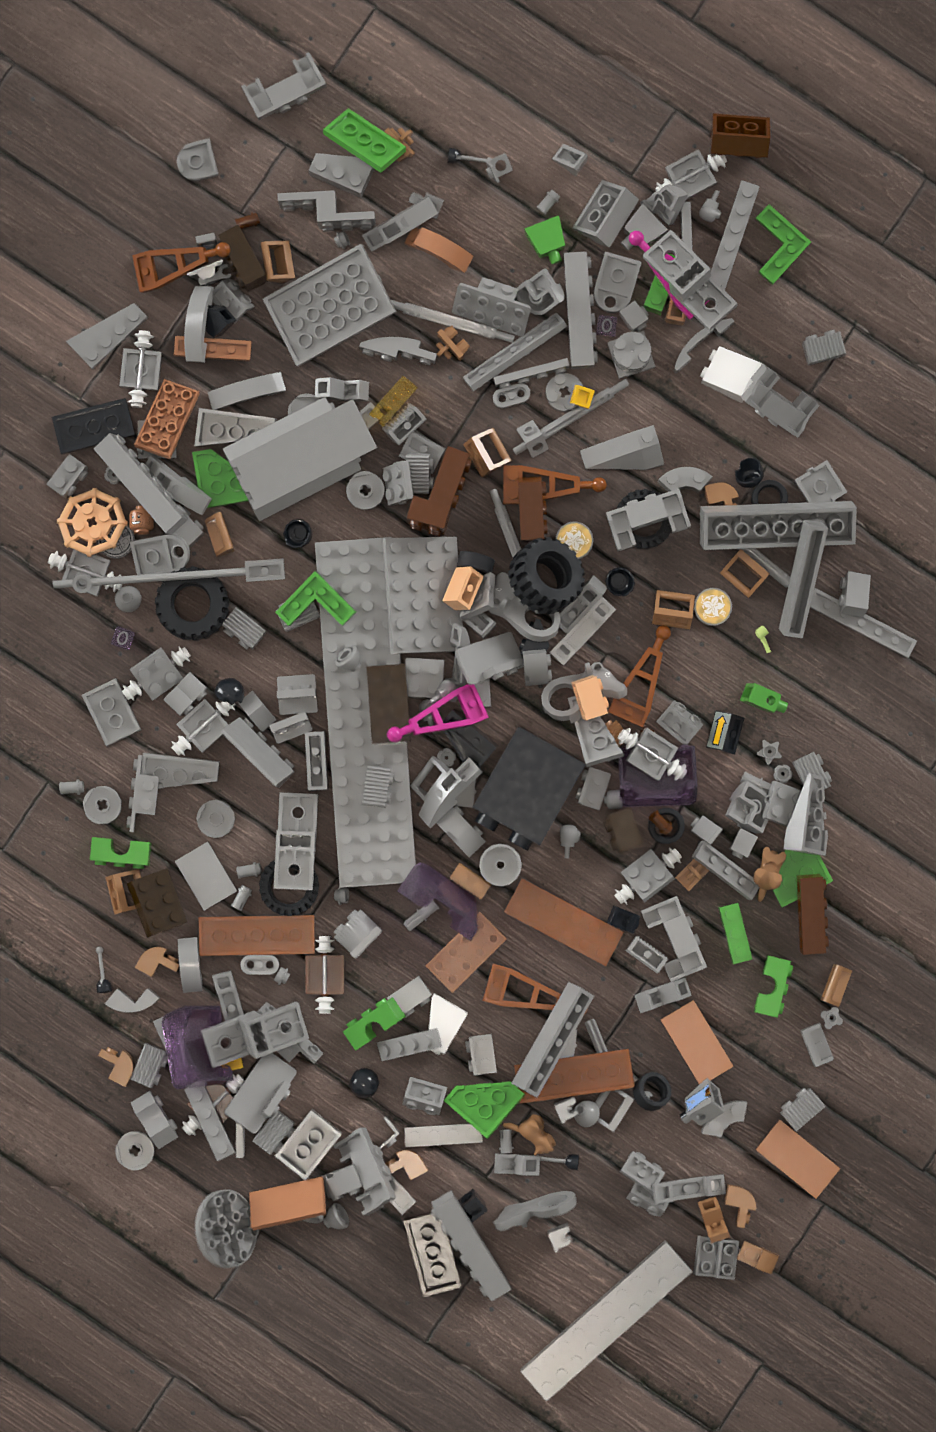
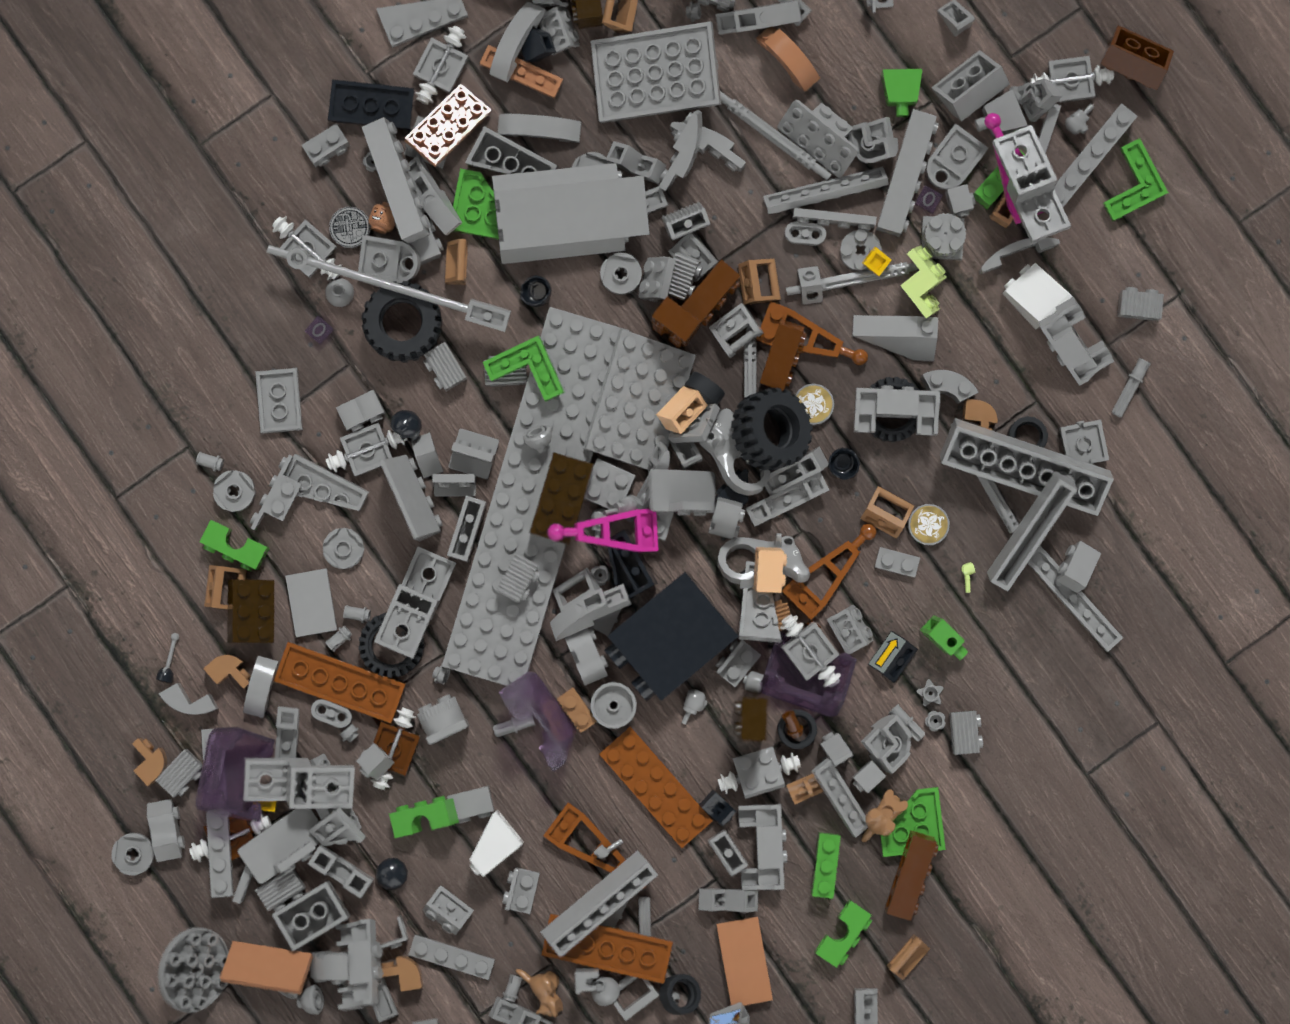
camera: 10 degrees right, 0 degrees up
(95, 532) = (328, 190): light nougat plate -> none
(156, 673) = (339, 378): light grey plate -> none
(302, 1062) = (336, 829): none -> light grey wing
(313, 992) = (374, 762): none -> light grey brick
(320, 1096) = (341, 870): none -> light grey arch
(380, 358) = (687, 144): none -> light grey slope
(393, 400) = (684, 193): clear yellow plate -> none
(409, 1044) = (451, 853): light grey plate -> none
(446, 337) = (769, 167): medium nougat hips -> none
(464, 956) = (539, 784): nougat tile -> none
(479, 497) = (731, 325): none -> light grey plate
(485, 1104) = (505, 942): bright green plate -> none
(538, 995) = (601, 852): none -> light grey hand
(551, 198) = (917, 51): light grey pin -> none
(629, 398) = (924, 280): none -> yellowish green bracket
(698, 649) = (897, 562): none -> light grey plate
(749, 473) = (1017, 403): black hair -> none
(750, 564) = (984, 498): medium nougat tile -> none
(780, 803) = (925, 753): light grey plate -> none
(806, 827) = (939, 783): light grey wedge -> none
(836, 1020) = (886, 984): light grey plate -> none
(842, 423) = (1135, 378): none -> light grey axle

